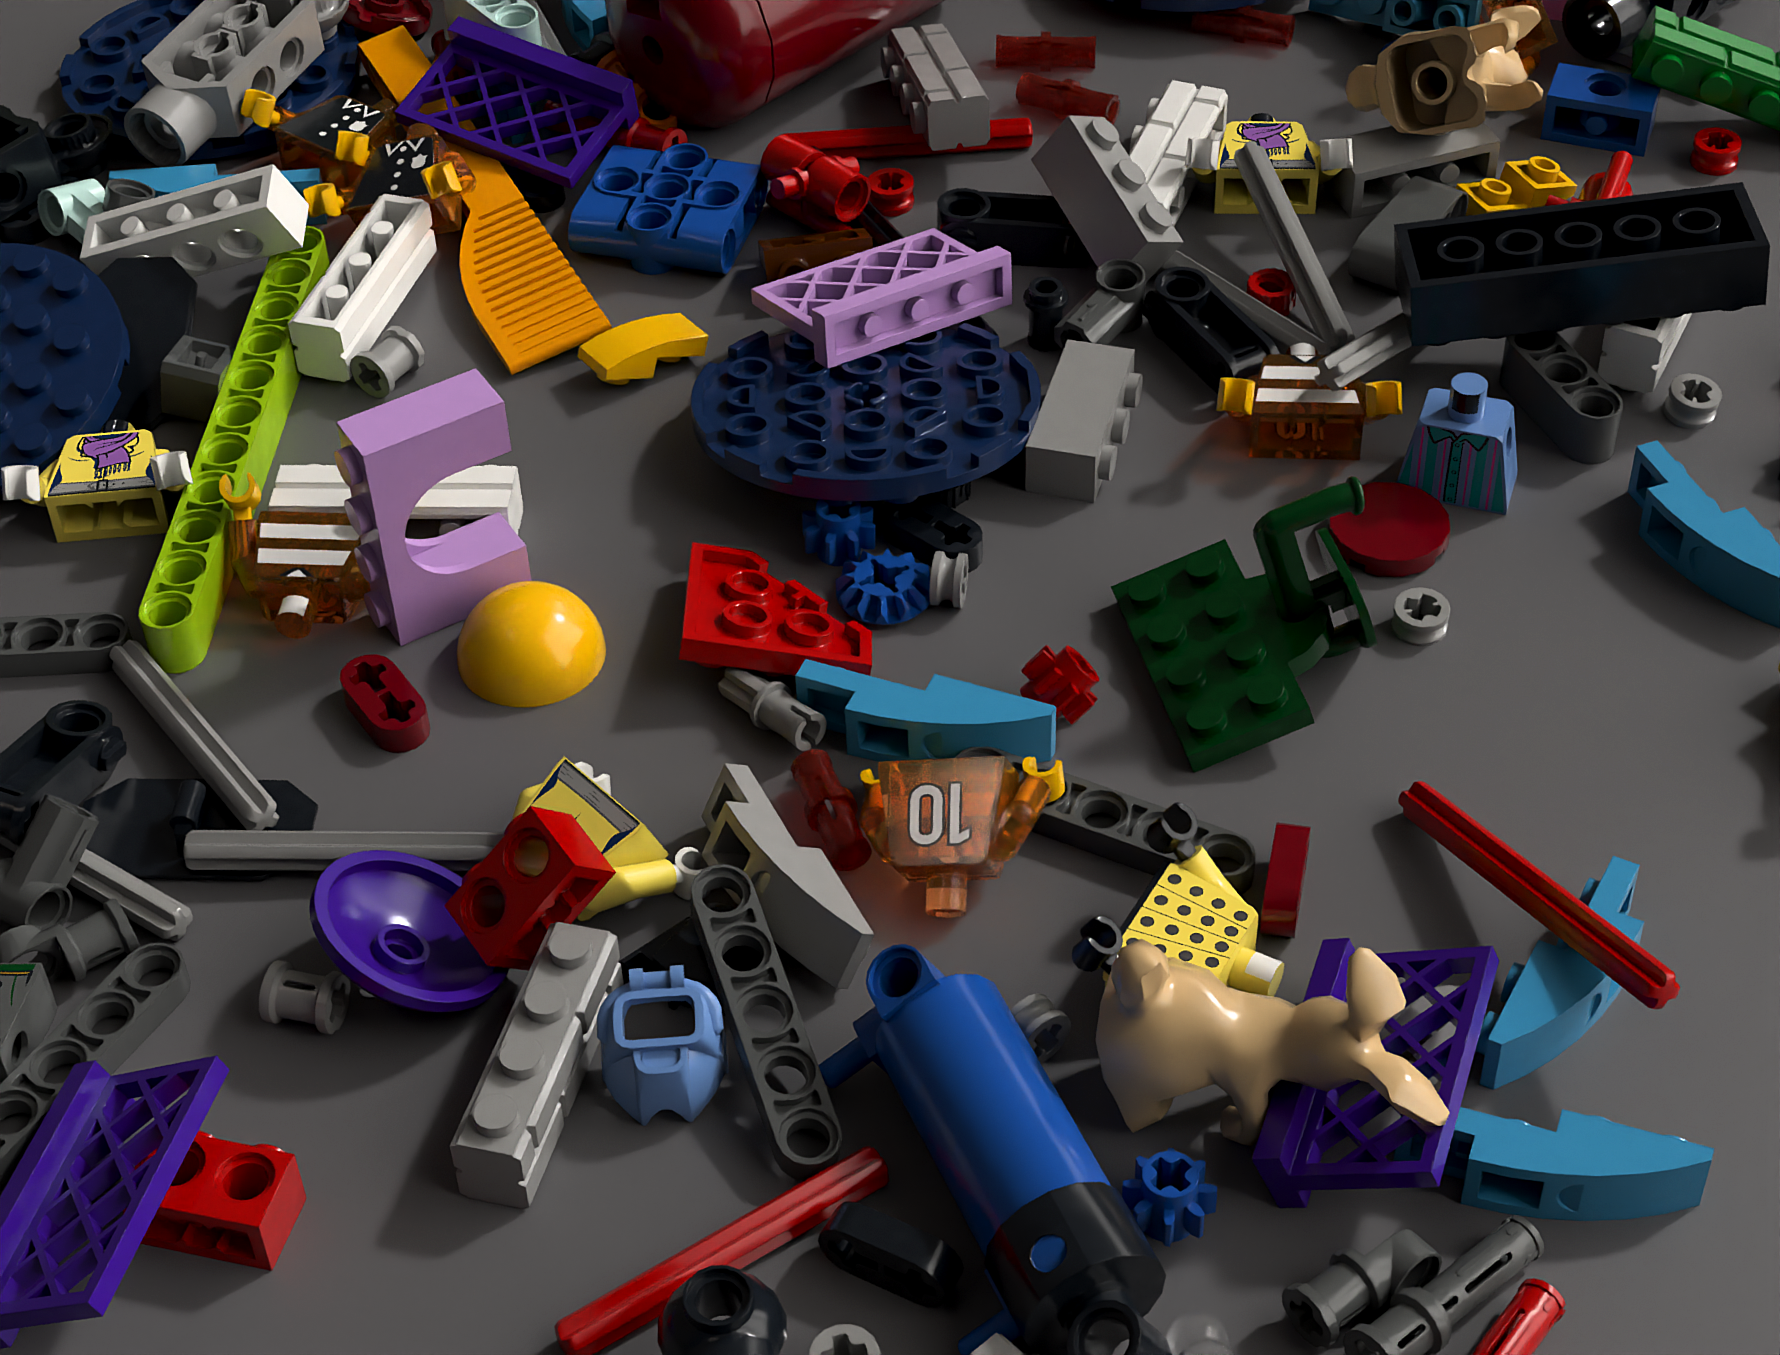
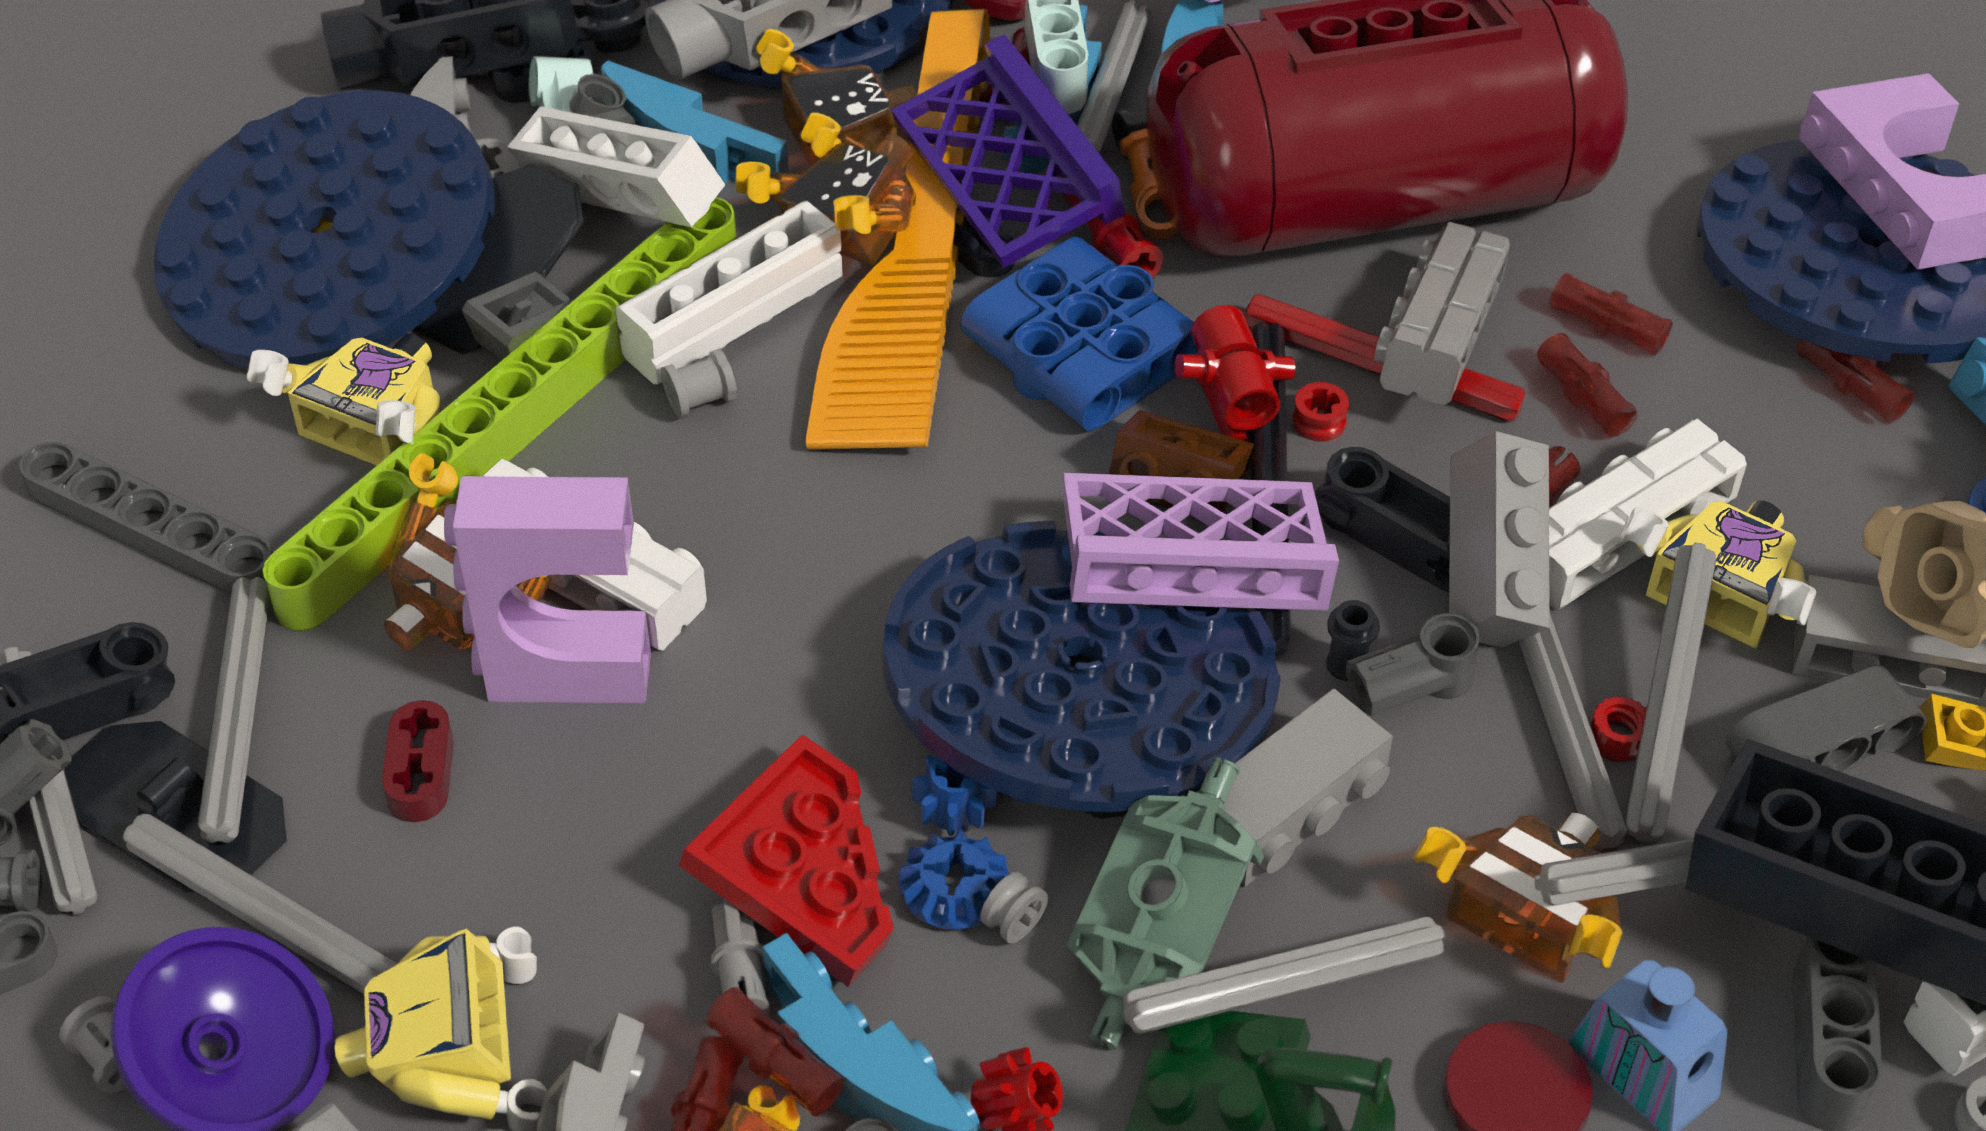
camera: 30 degrees right, 5 degrees up
(530, 645) = (588, 768): yellow piece -> none
(530, 879) = (336, 1051): red brick -> none
(635, 347) = (920, 478): yellow slope -> none
(863, 733) = (775, 1051): none -> clear red pin
(932, 527) = (1036, 844): black beam -> none
(1066, 556) = (1145, 944): none -> sand green plate
(1180, 526) = (1282, 975): none -> light grey axle
(1205, 327) = (1506, 741): black piece -> none

